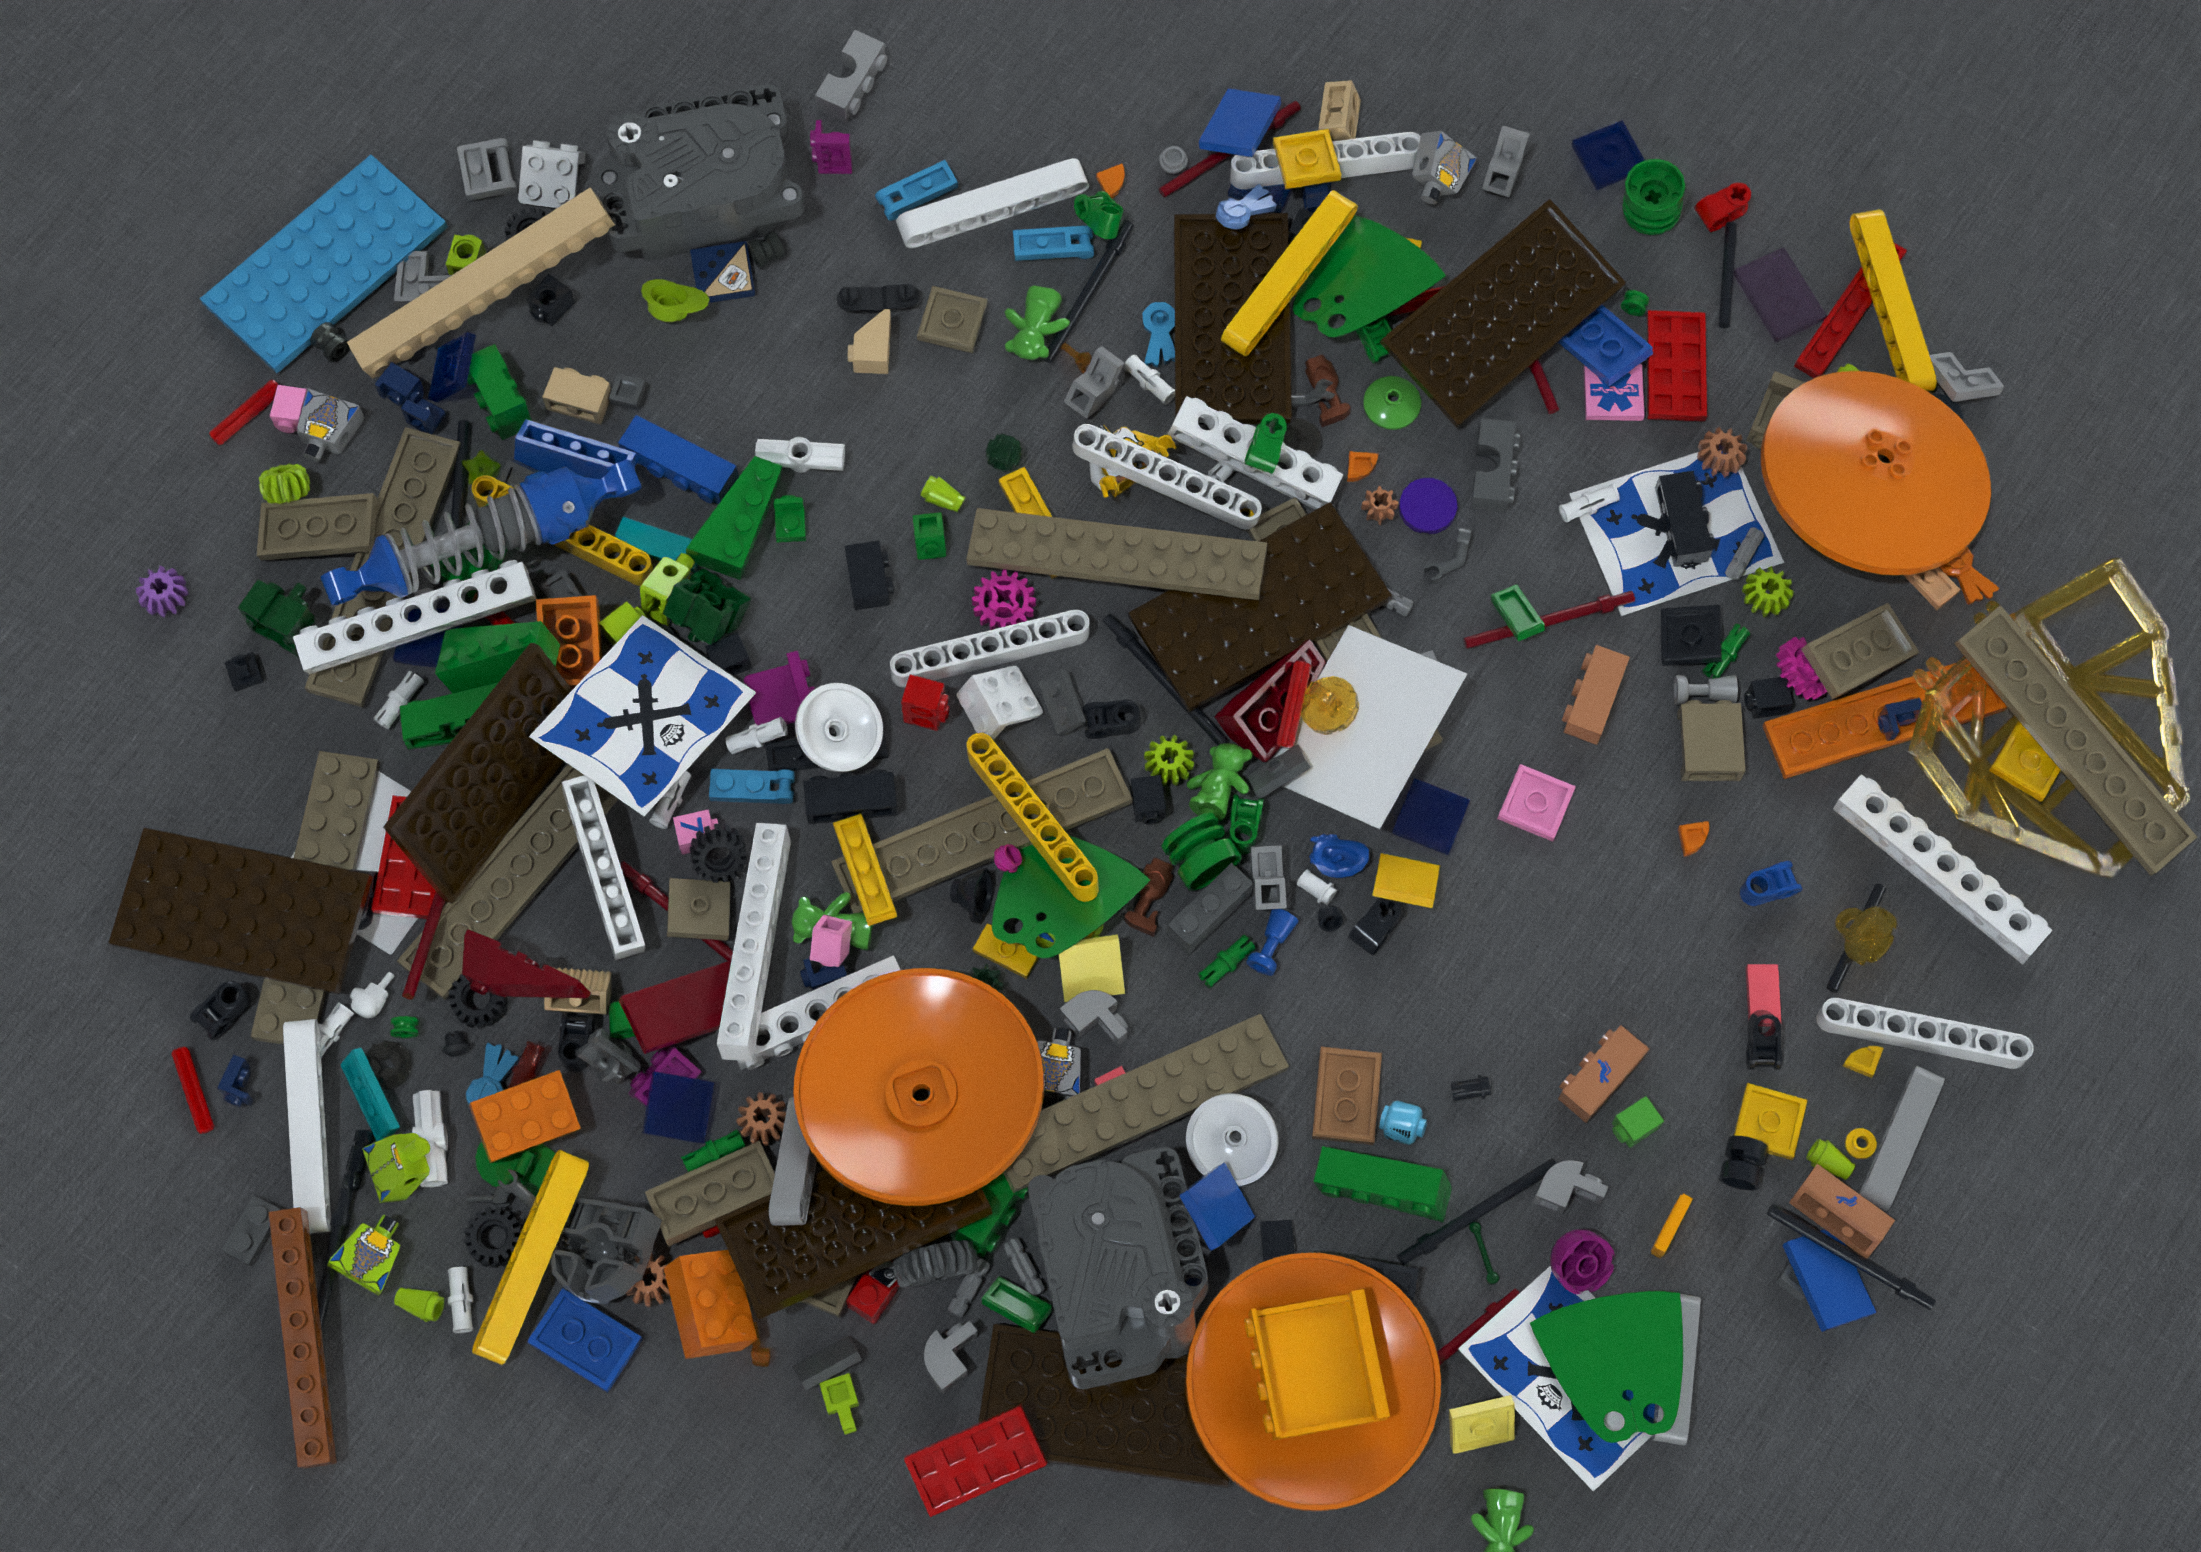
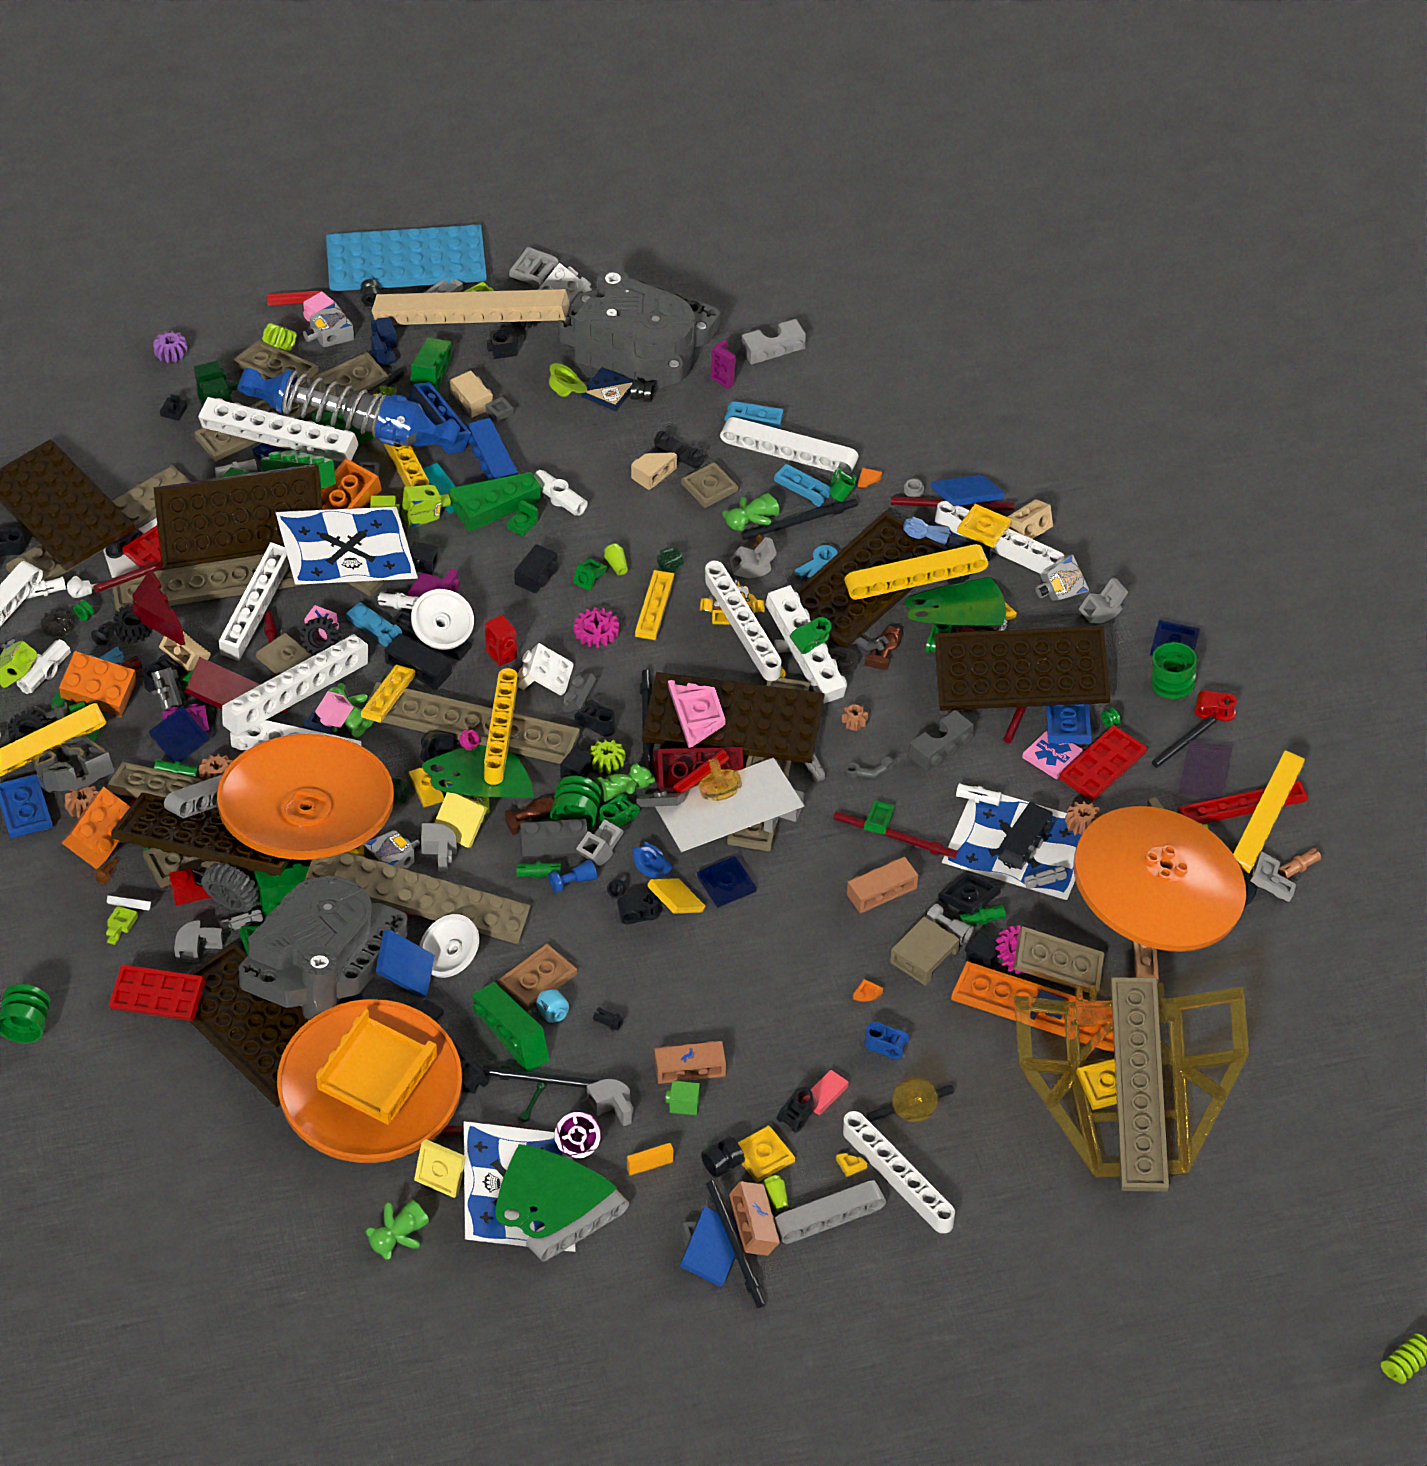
camera: 40 degrees right, 20 degrees down
(369, 1094) = (36, 622): teal tile -> none
(452, 367) = (418, 338): clear blue tile -> none
(669, 802) = (337, 597): white pin -> none
(706, 607) = (433, 523): dark green brick -> none
(999, 637) = (570, 644): white beam -> none
(1117, 553) = (679, 640): dark tan plate -> none
(1149, 379) = (788, 577): white pin -> none
(1227, 633) = (697, 710): none -> bright pink wing
(1317, 887) = (626, 872): white pin -> none
(1360, 465) = (866, 695): orange tile -> none
(1388, 413) = (917, 679): bright green dish -> none
(1428, 505) = (884, 737): dark purple tile -> none
(1536, 802) = (793, 915): bright pink tile -> none
(1756, 591) = (1038, 902): lime gear -> none
(1856, 1151) = (802, 1193): yellow plate -> none
(1945, 884) = (990, 1068): white brick -> none
(1969, 578) = (1171, 964): orange piece -> none
(1970, 338) = (1299, 863): none -> nougat pin

